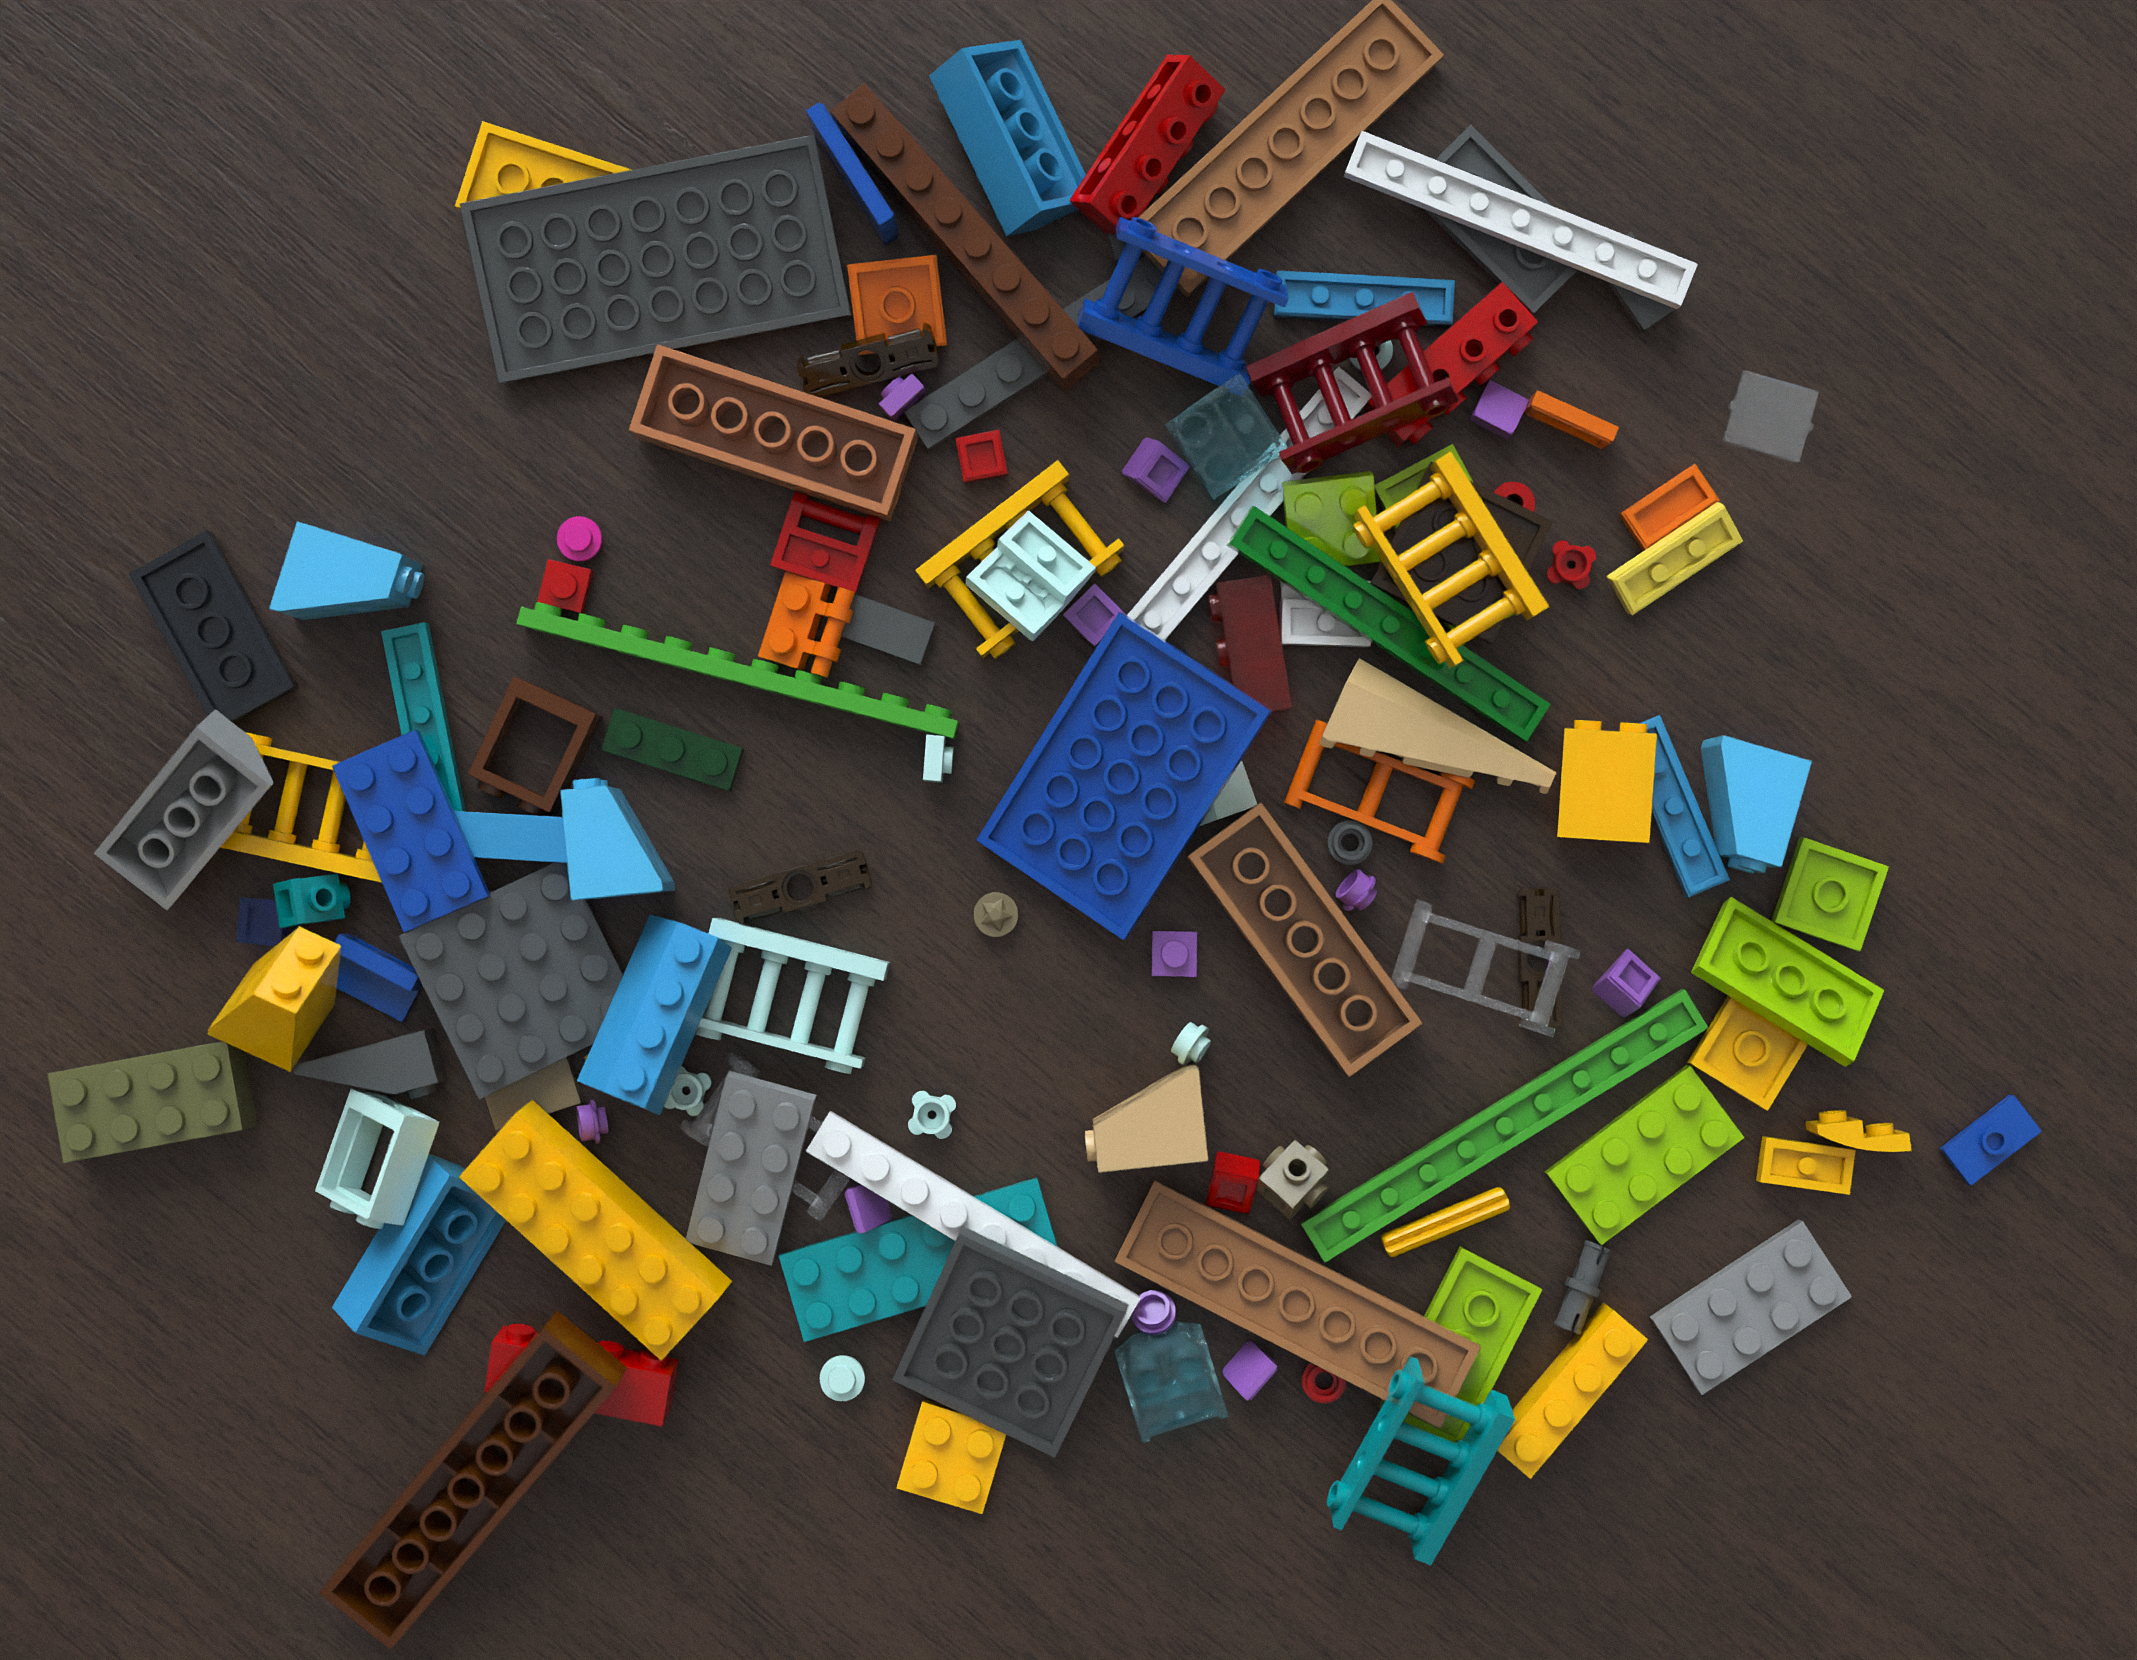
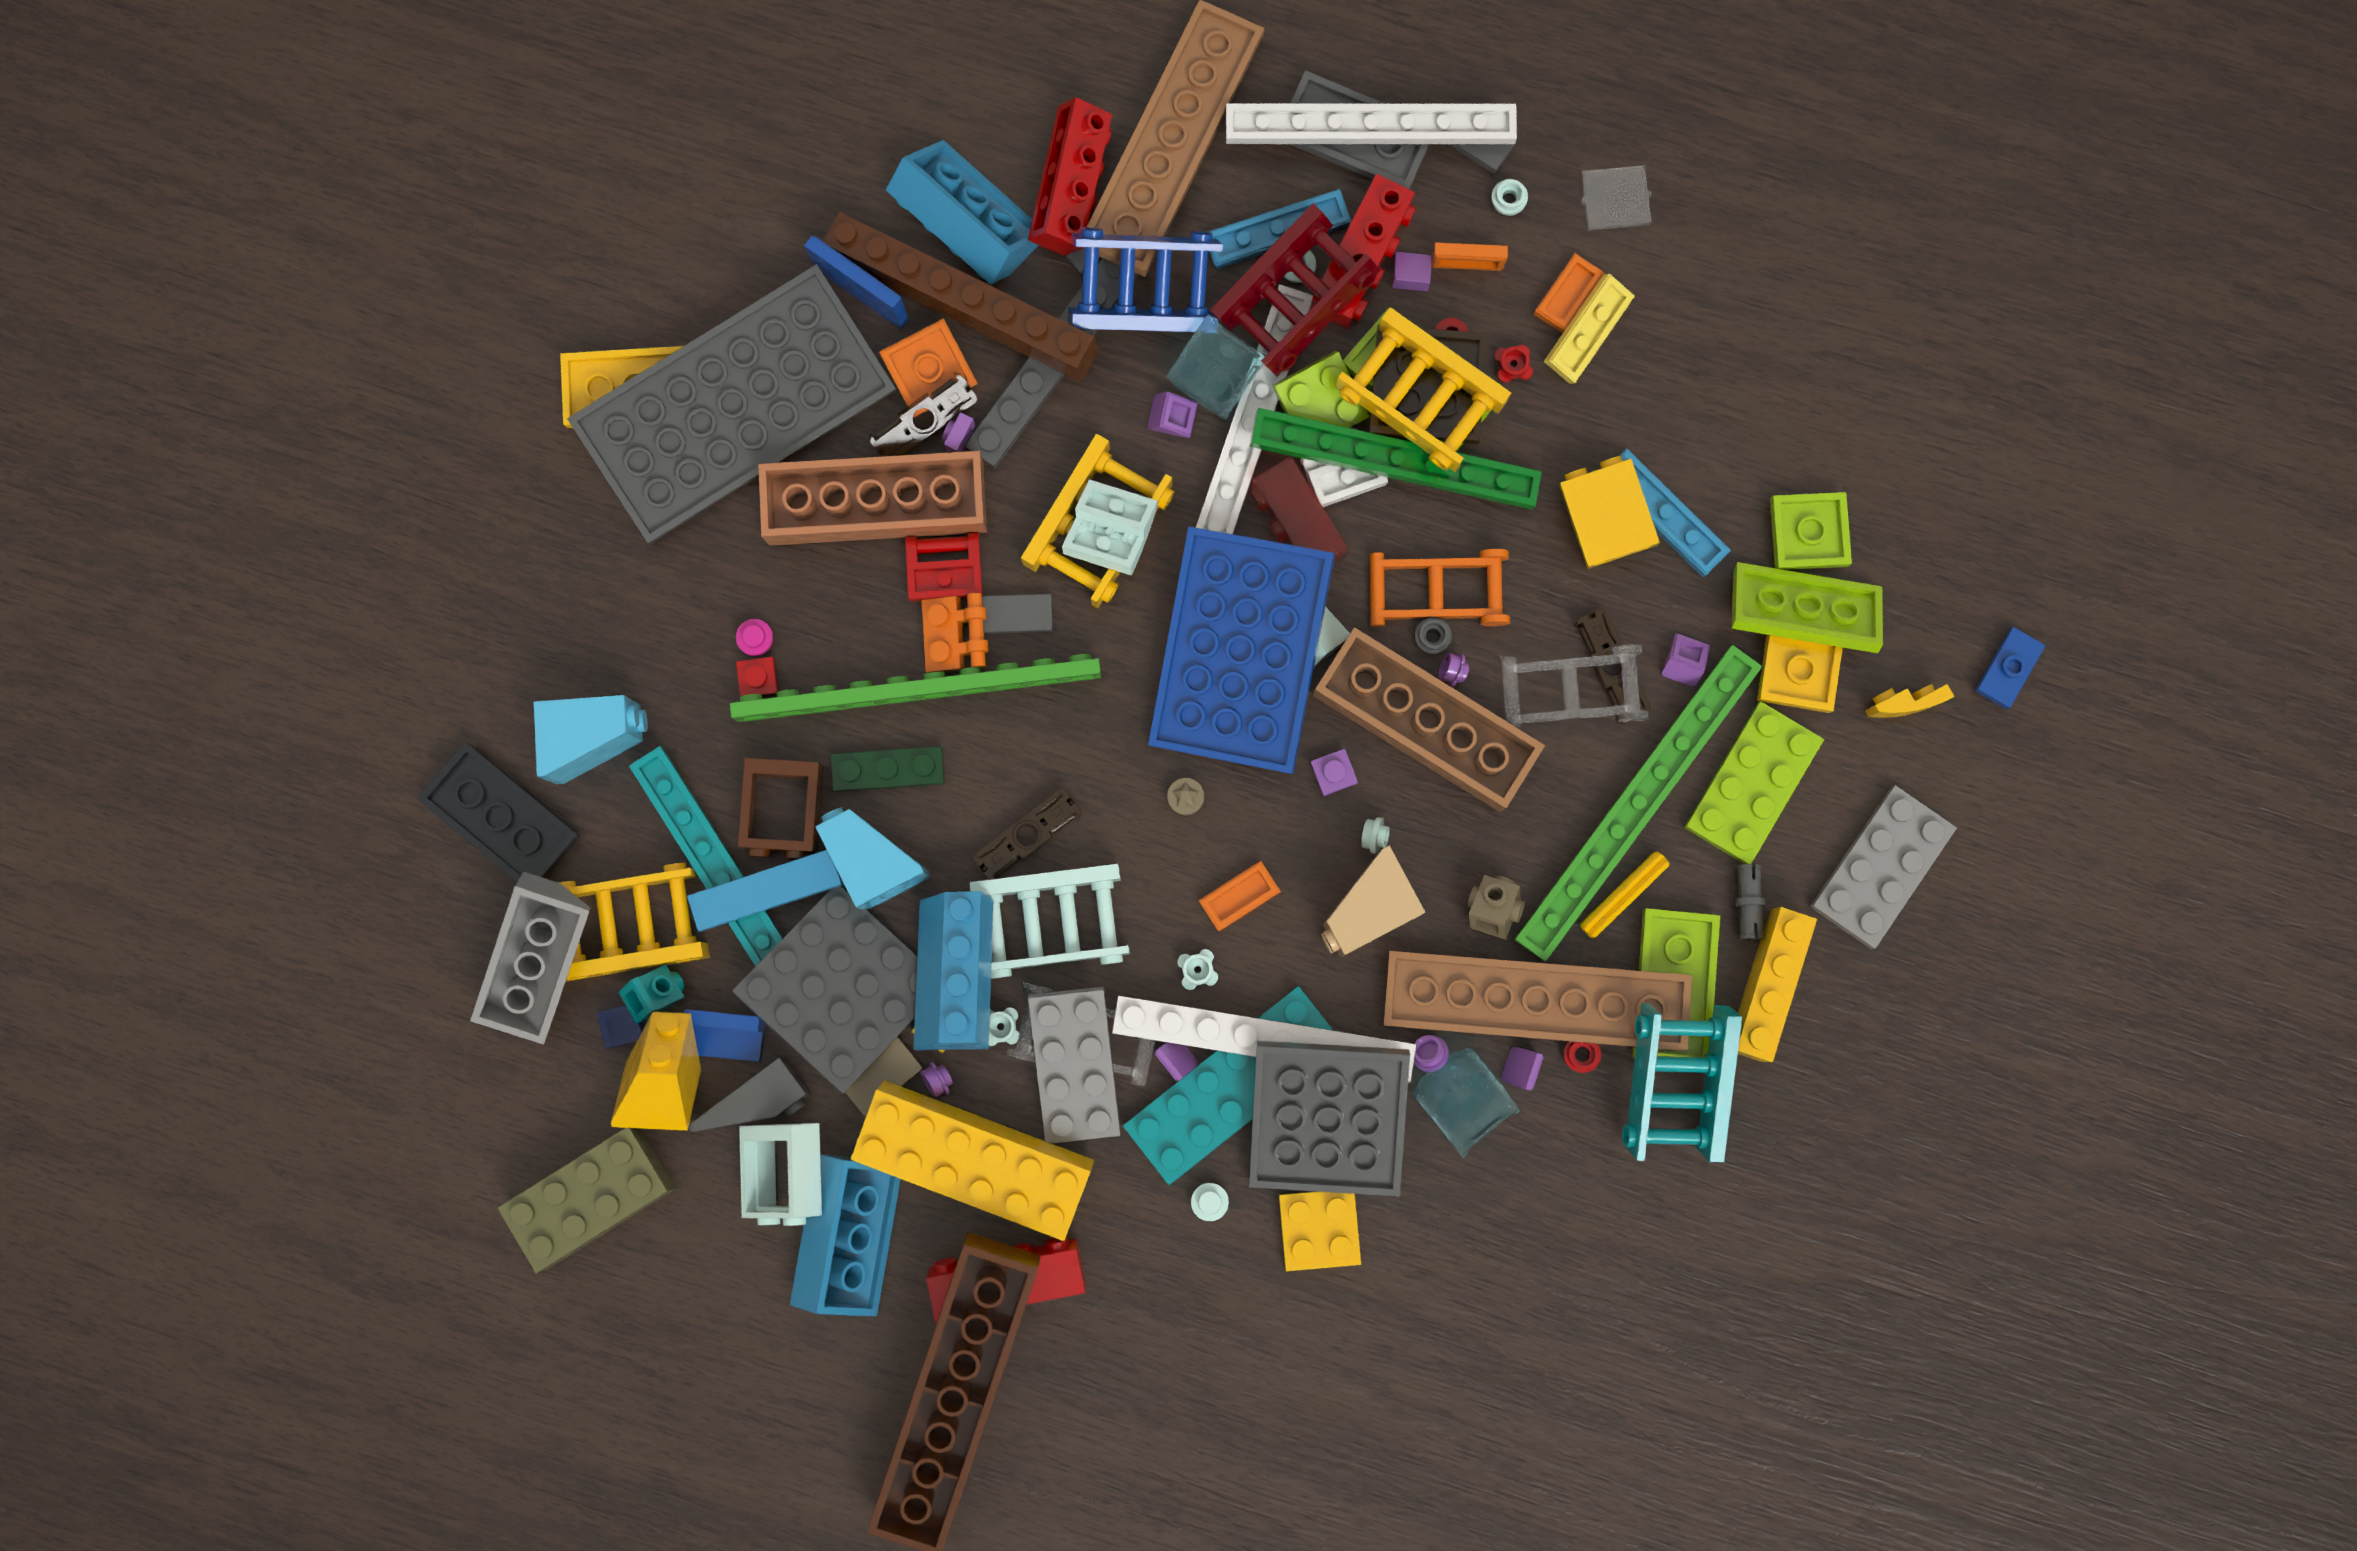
camera: 20 degrees left, 5 degrees down
(411, 830) = (710, 906): blue plate -> none
(937, 759) = (1094, 695): light aqua plate -> none
(981, 456) = (1036, 457): red tile -> none
(1011, 1050) = (1239, 896): none -> orange tile
(1092, 614) = (1168, 541): medium lavender plate -> none
(1233, 1182) = (1450, 930): red slope -> none
(1397, 720) = (1431, 527): tan wedge -> none
(1660, 365) = (1512, 187): none -> light aqua plate
(1752, 800) = (1722, 481): medium azure slope -> none
(1805, 1165) = (1879, 741): yellow plate -> none

